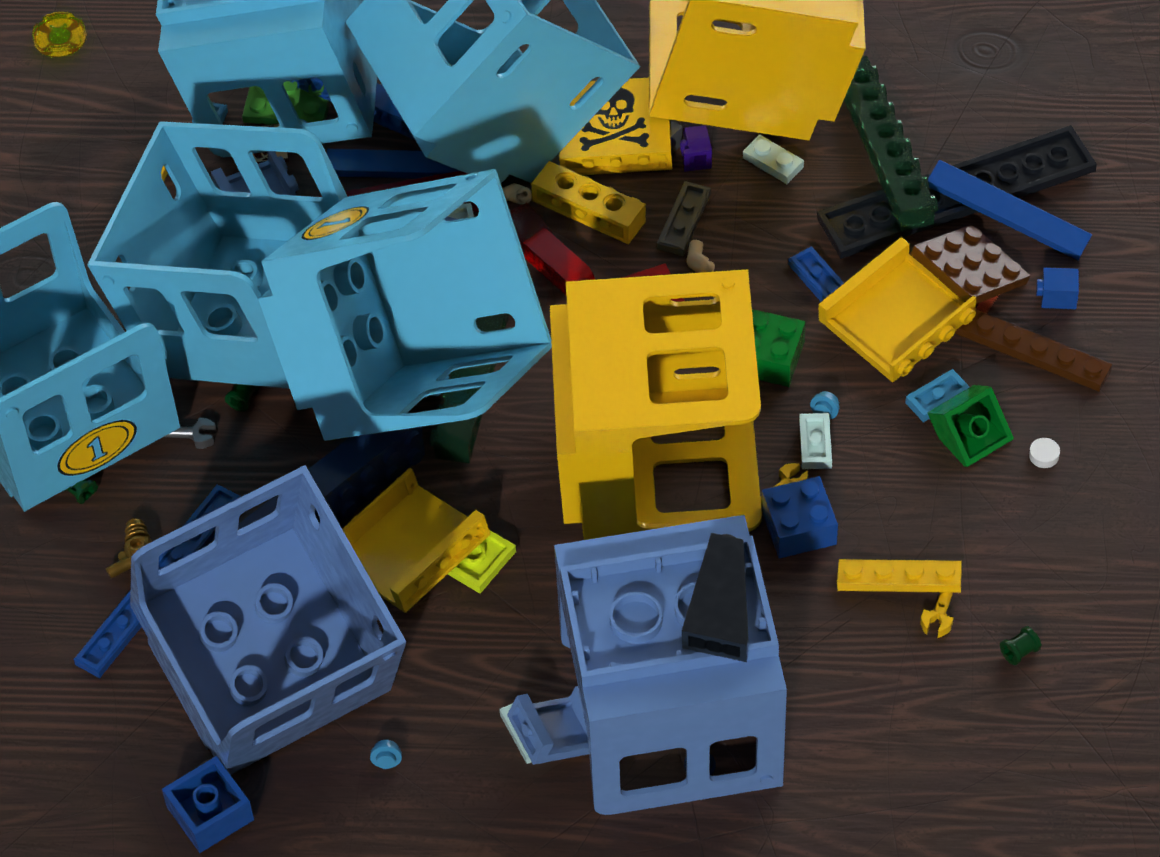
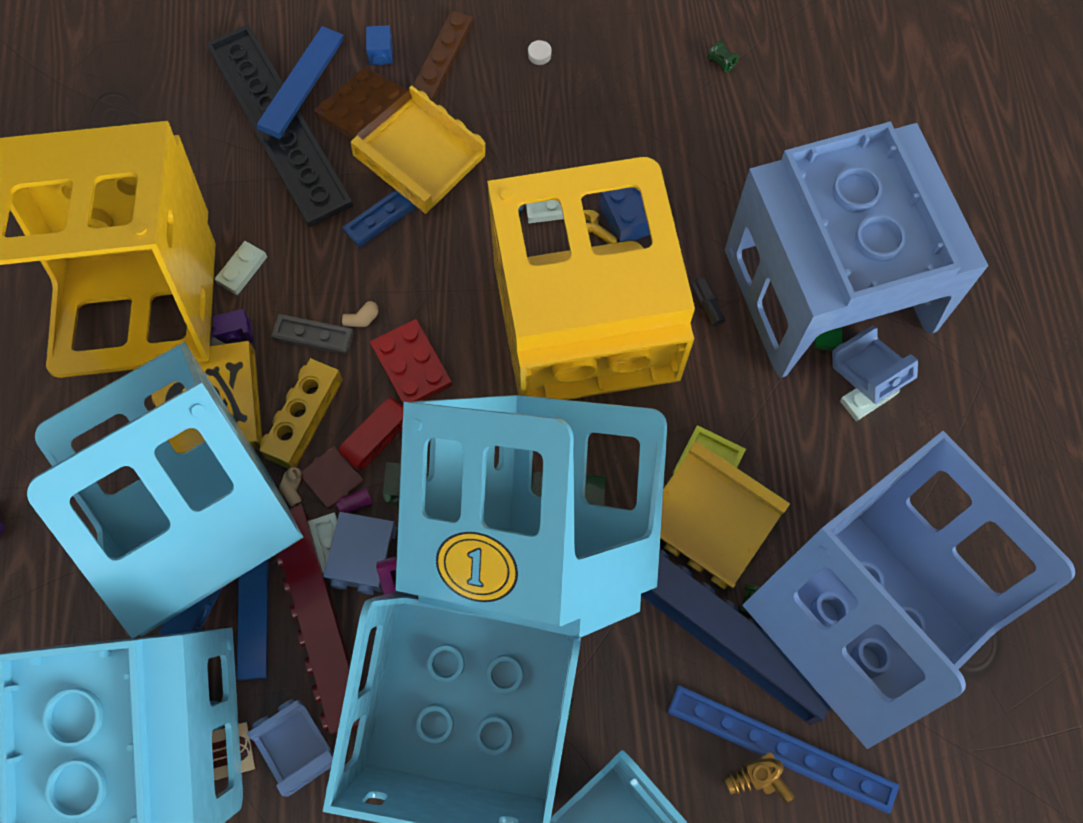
camera: 100 degrees left, 15 degrees up
(195, 433) = (606, 749): flat silver bar -> none
(208, 804) = (1024, 648): blue brick -> none
(386, 754) = (925, 502): dark azure plate -> none
(718, 607) = (869, 159): black slope -> none
(777, 346) = (460, 246): green brick -> none
(889, 150) = (266, 163): clear green brick -> none
(899, 575) = (674, 139): yellow plate -> none
(935, 393) = (495, 123): dark azure plate -> none
(938, 613) = (700, 113): yellow bar -> none
(971, 424) = (520, 98): green slope -> none

